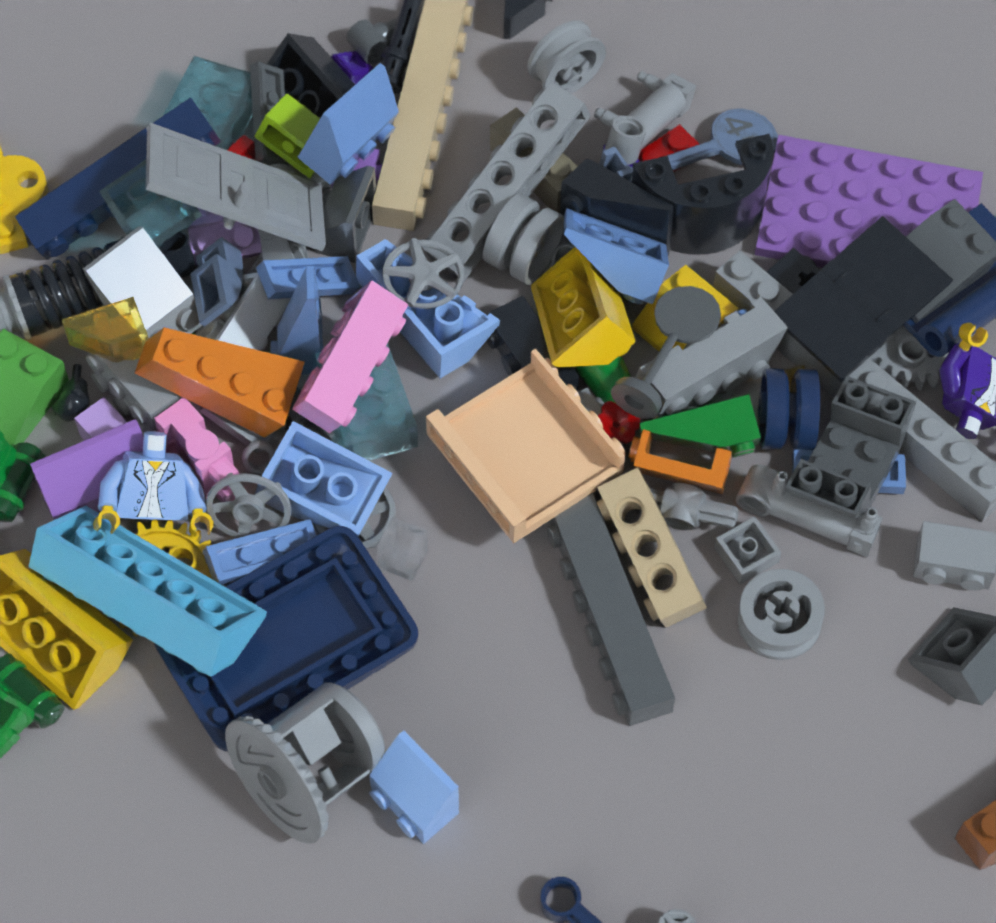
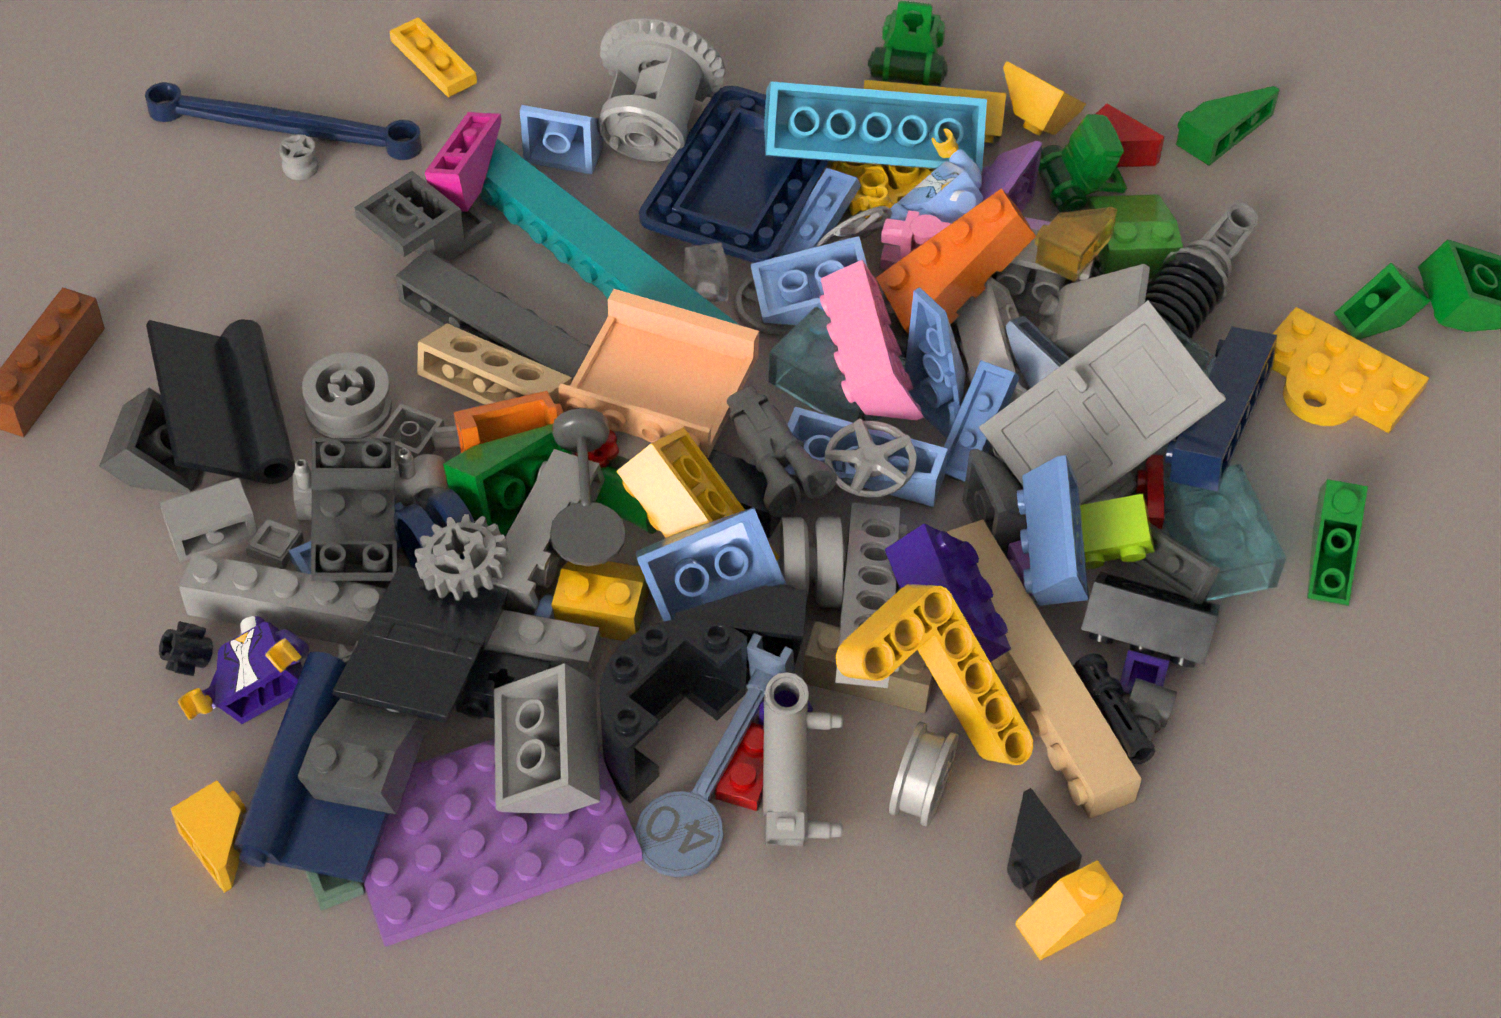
camera: 145 degrees right, 10 degrees down
(127, 74) = (1335, 541): none -> green slope
(458, 143) = (942, 560): none -> dark purple brick
(476, 656) = (581, 236): none -> teal brick
(490, 320) = (774, 448): none -> dark grey piece
(518, 71) = (933, 624): none -> yellow beam
(536, 781) = (465, 158): none -> dark pink slope
(612, 748) = (419, 218): none -> dark grey bracket
(809, 204) = (546, 743): none -> light grey slope
(815, 333) = (441, 563): none -> light grey gear
(895, 659) = (221, 401): none -> black door
(907, 516) = (273, 543): none -> light grey tile

